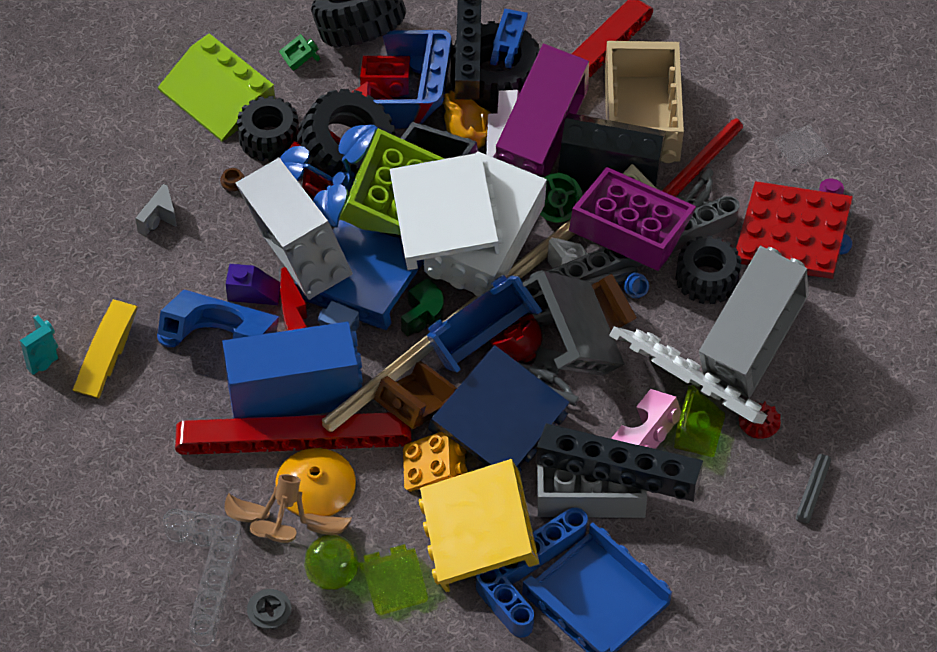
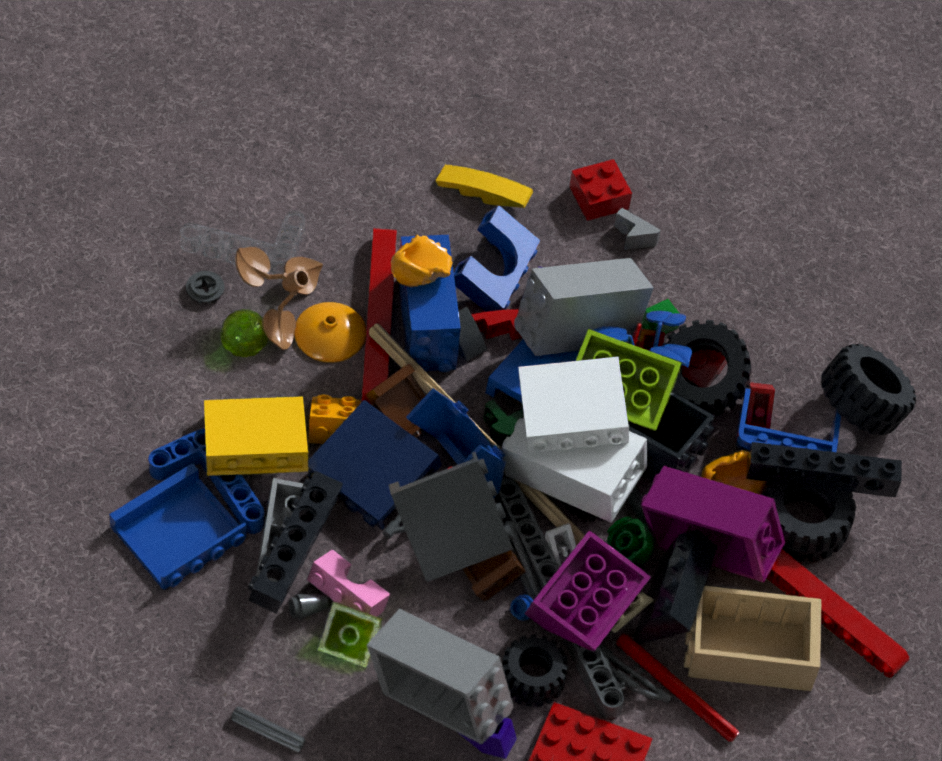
camera: 90 degrees right, 0 degrees up
(39, 346) = (485, 137): teal bracket -> none
(105, 242) = (600, 189): none -> red brick
(214, 86) = (786, 286): lime slope -> none
(230, 177) = (674, 291): reddish brown plate -> none
(267, 113) = (734, 303): black tyre -> none
(278, 351) = (420, 262): none -> light orange piece
(299, 51) = (827, 349): green bracket -> none
(338, 313) = (495, 354): medium blue brick -> none
(387, 73) = (800, 416): red plate -> none
(394, 579) = (220, 372): clear neon green bracket -> none
(509, 36) = (823, 508): blue hinge -> none
(688, 371) = (427, 595): white wing -> none
(765, 430) = (352, 705): red gear -> none

